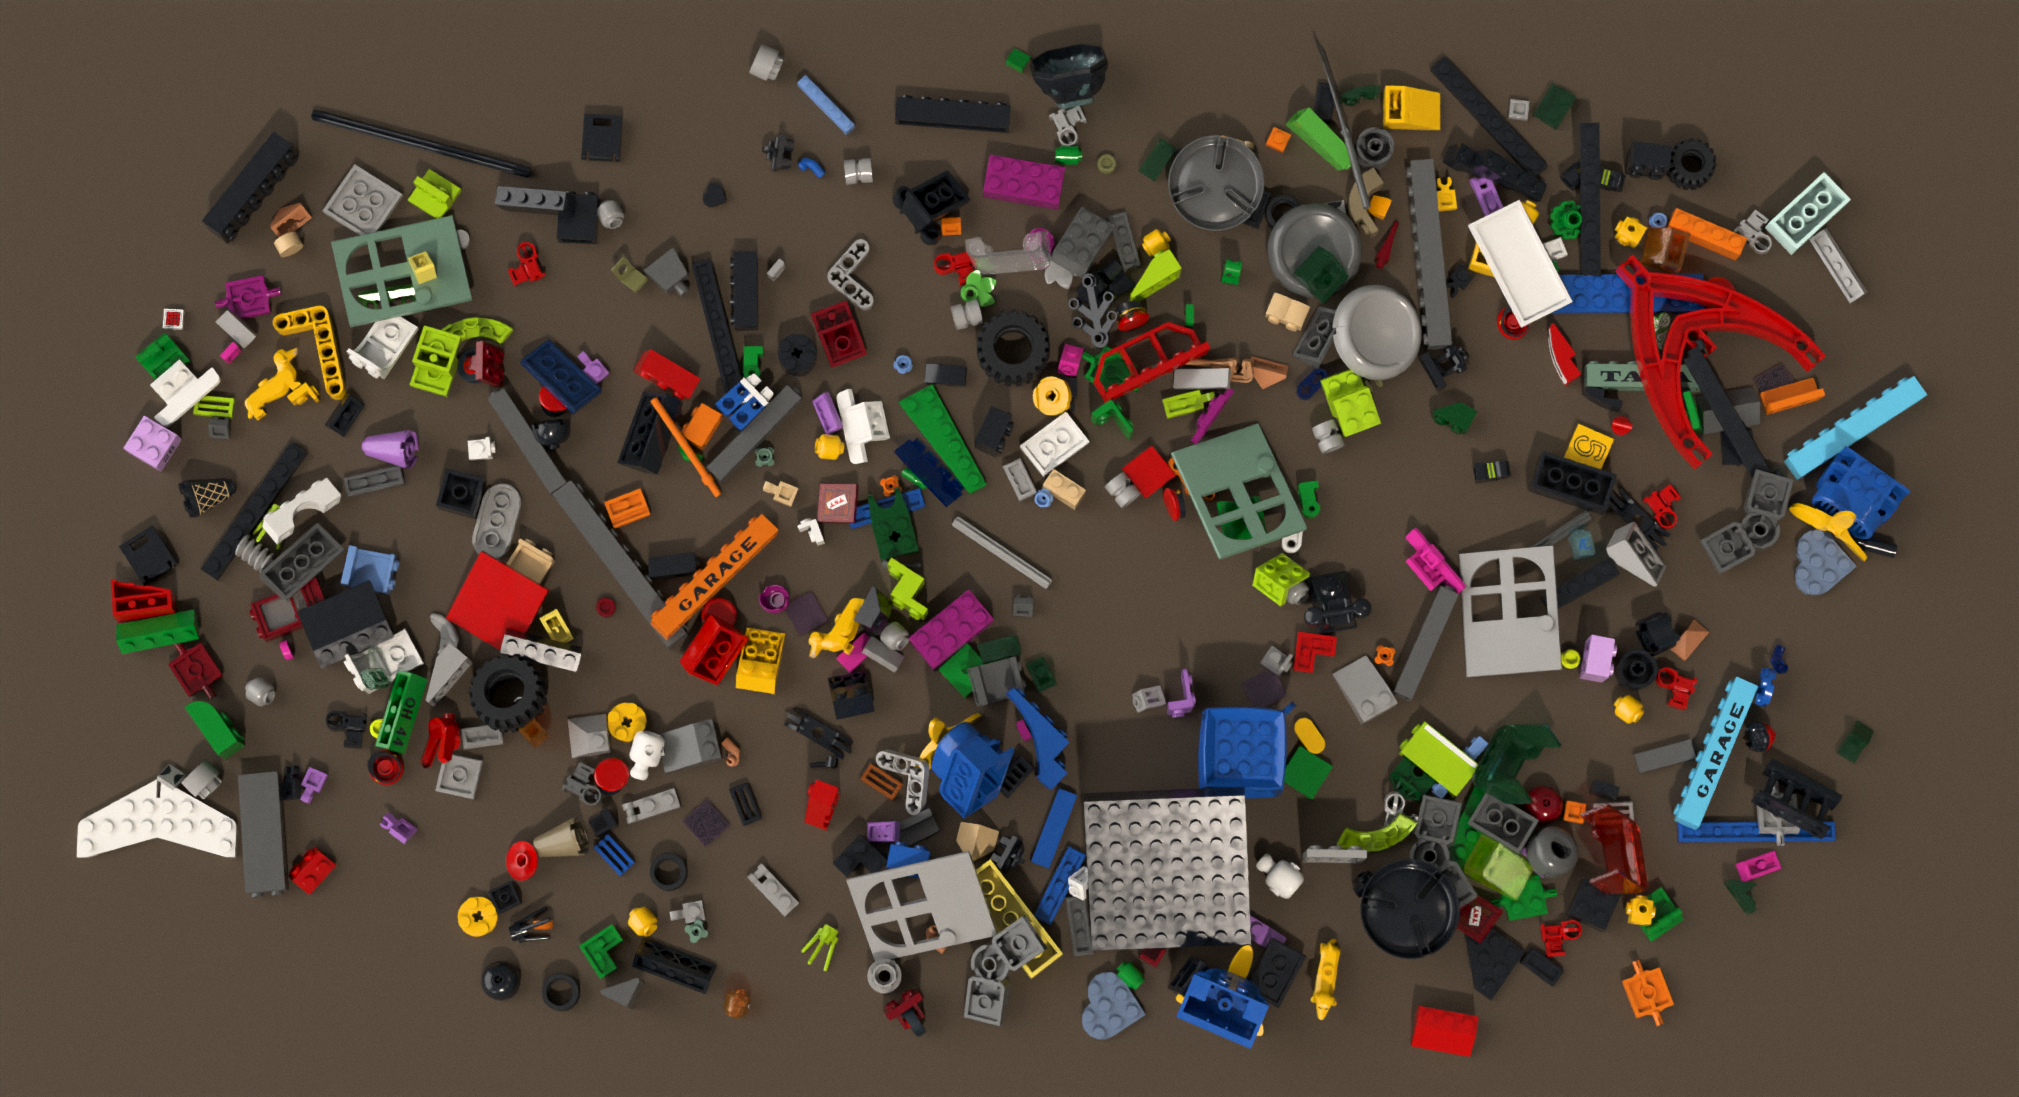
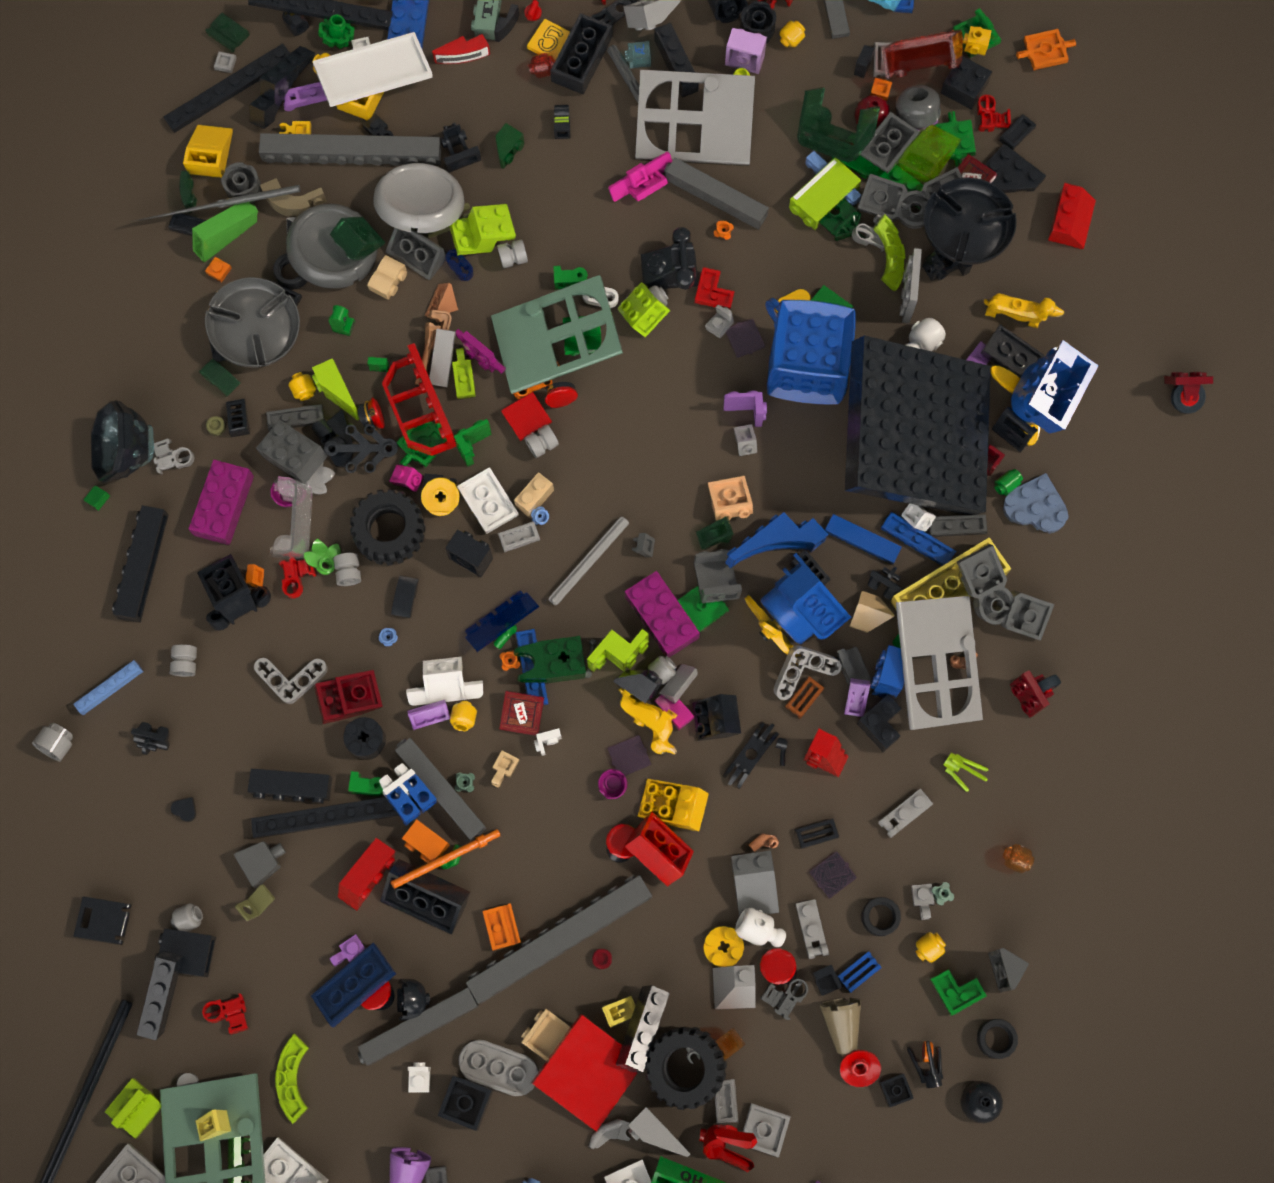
camera: 80 degrees left, 5 degrees down
(435, 361) = (318, 1119): lime bracket -> none
(482, 364) = (329, 1069): dark red plate -> none
(483, 926) = (925, 1118): yellow plate -> none
(672, 968) = (980, 919): black fence -> none
(673, 566) = (567, 883): black brick -> none
(714, 576) = (585, 842): orange brick -> none
(776, 270) = (273, 752): light grey tile -> none
(813, 165) = (168, 707): blue arm -> none
(895, 976) = (1007, 706): light grey piece -> none
(936, 426) = (453, 611): green wing -> none
(999, 649) = (685, 571): clear green slope -> none
(1023, 731) = (767, 556): magenta tile -> none
(1068, 155) = (201, 459): green brick -> none
(1081, 688) = (730, 498): none -> light nougat plate
(1115, 177) = (241, 430): none -> black slope
(1364, 689) = (755, 249): light grey slope -> none
(1379, 206) = (304, 185): light orange slope -> none
(1384, 253) = (342, 188): dark red piece -> none
(1509, 325) = (425, 90): red piece -> none
(1555, 442) = (541, 65): none -> clear red head

